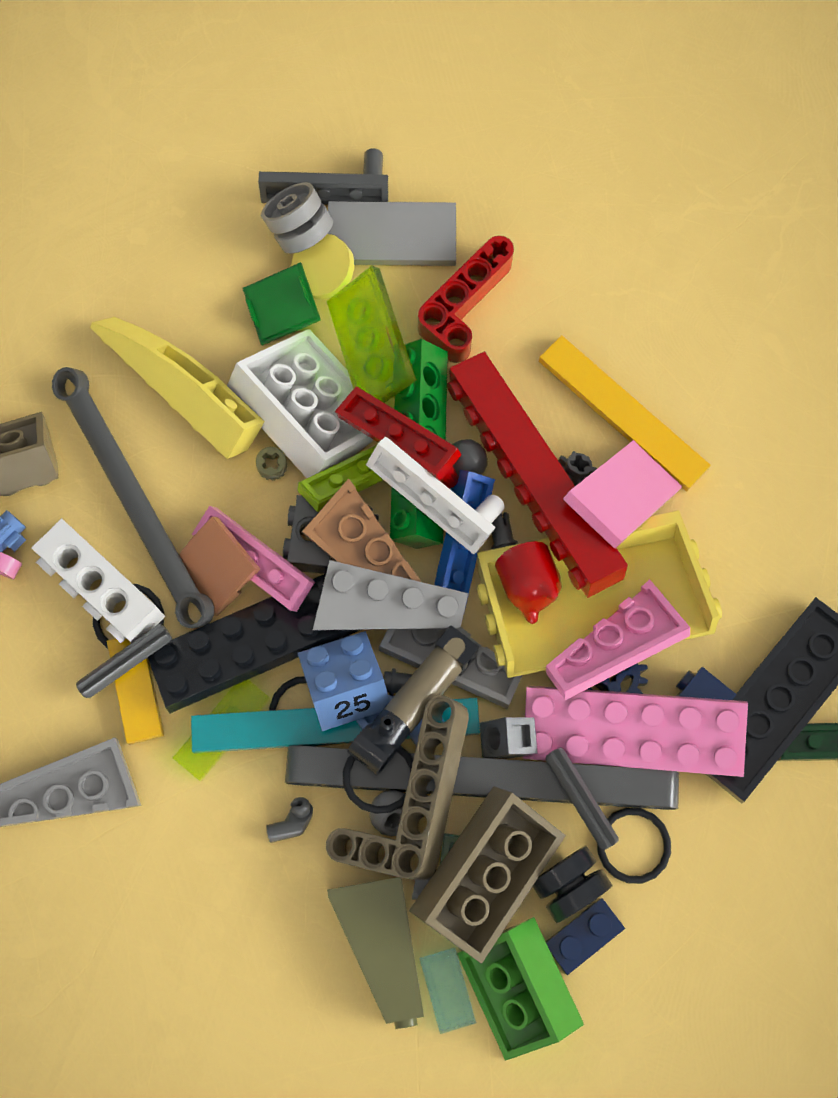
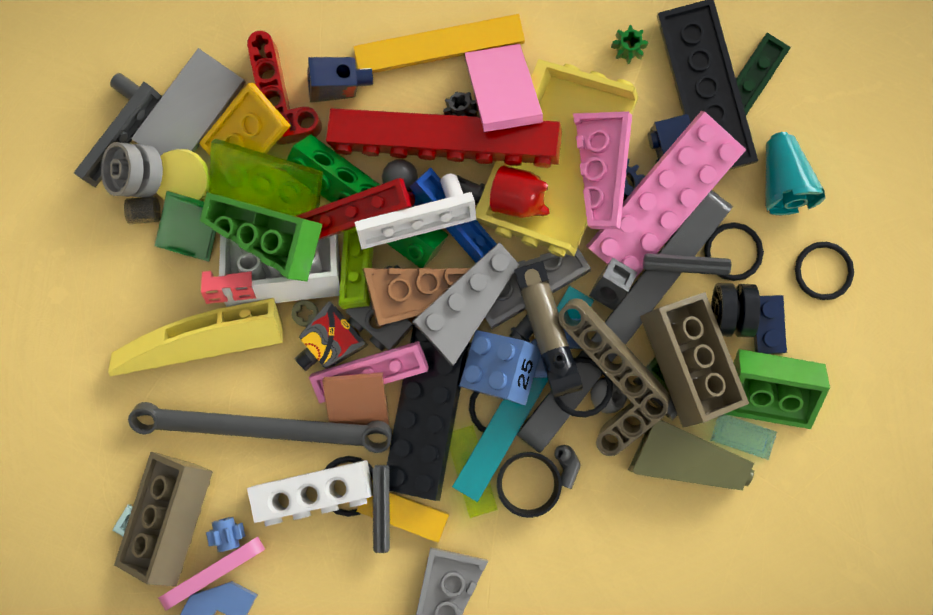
camera: 50 degrees left, 10 degrees up
(216, 774) = (544, 508): none -> black tyre
(238, 353) = (232, 281): none -> coral piece
(260, 501) = (329, 339): none -> torso
(267, 254) = (142, 210): none -> clear smoke beam
(319, 371) = (272, 236): none -> bright green wedge
(417, 288) = (248, 122): none -> yellow tile
(516, 337) = (335, 78): none -> dark blue torso
(652, 968) = (821, 245): none -> black piece
(751, 847) = (789, 177): none -> teal cone
(768, 599) = (635, 40): none -> green gear

